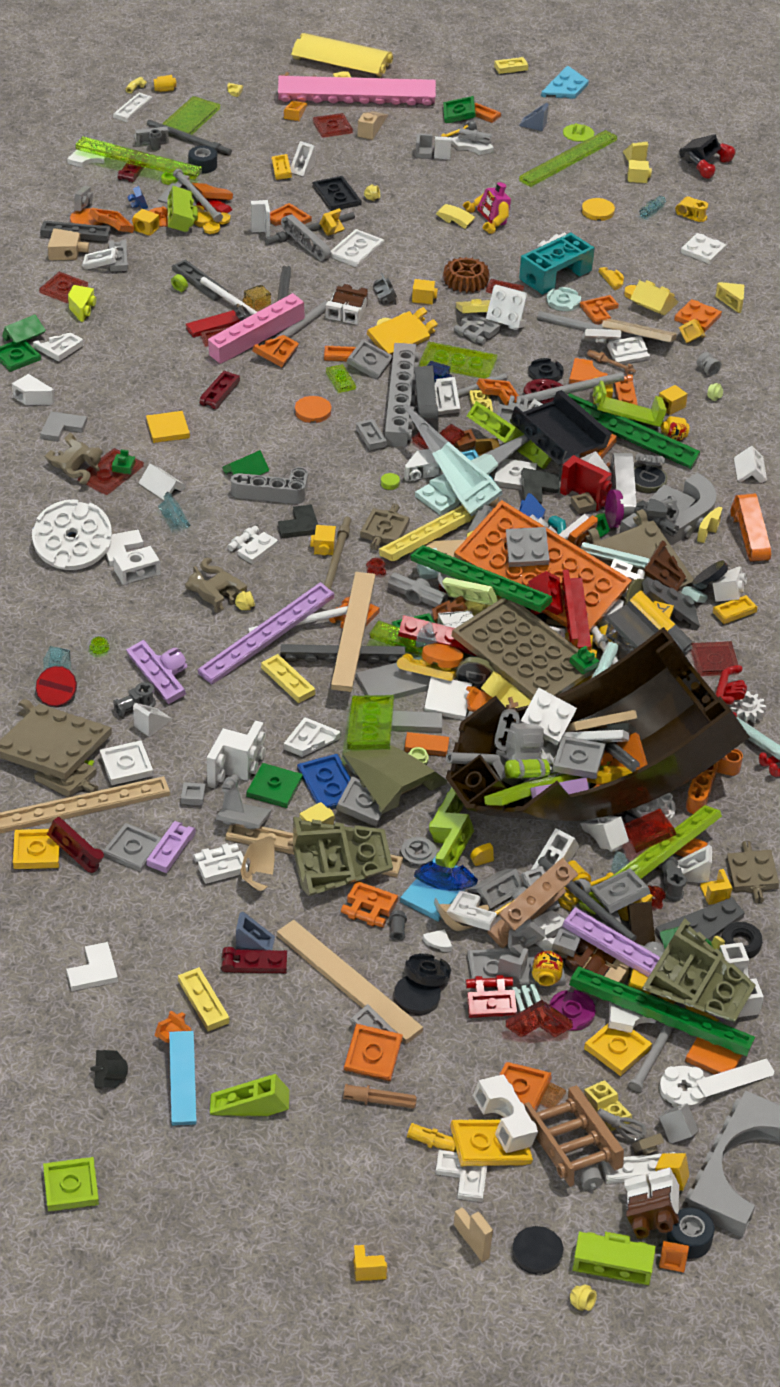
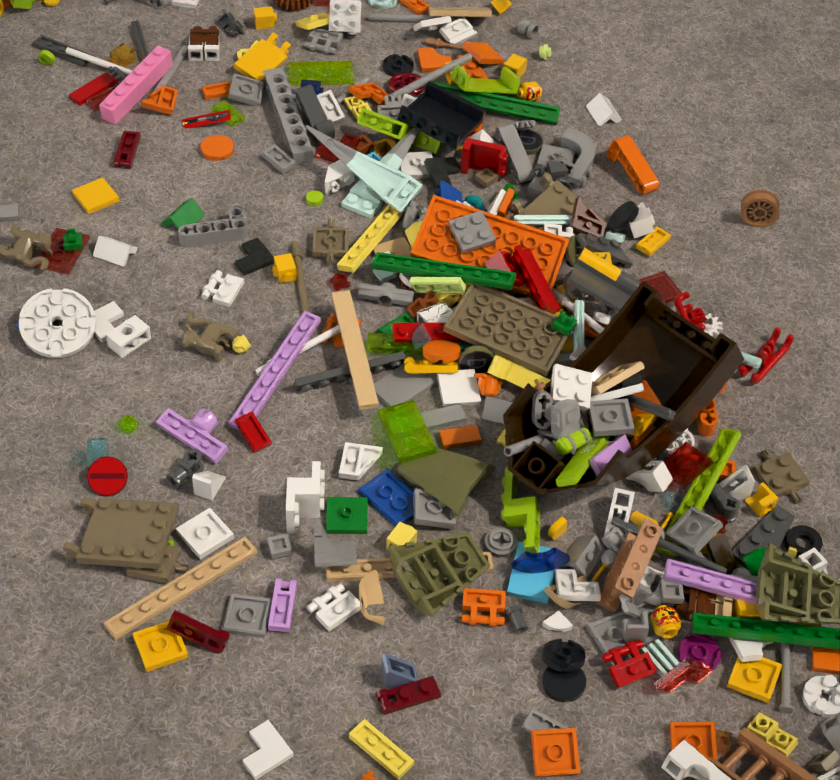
camera: 20 degrees left, 5 degrees up
(173, 510) = (136, 273): clear light blue plate -> none
(217, 684) = (253, 432): none -> red tile
(288, 678) = (312, 408): light yellow plate -> none
(319, 379) = (206, 119): none -> red sticker
(348, 979) = (497, 686): tan tile -> none
(420, 754) = (459, 448): yellowish green plate -> none
(613, 508) = (517, 176): magenta tile -> none
(617, 1122) = (791, 750): light grey piece -> none
(643, 377) = (483, 53): none -> orange tile
(709, 523) = (598, 170): light yellow slope -> none

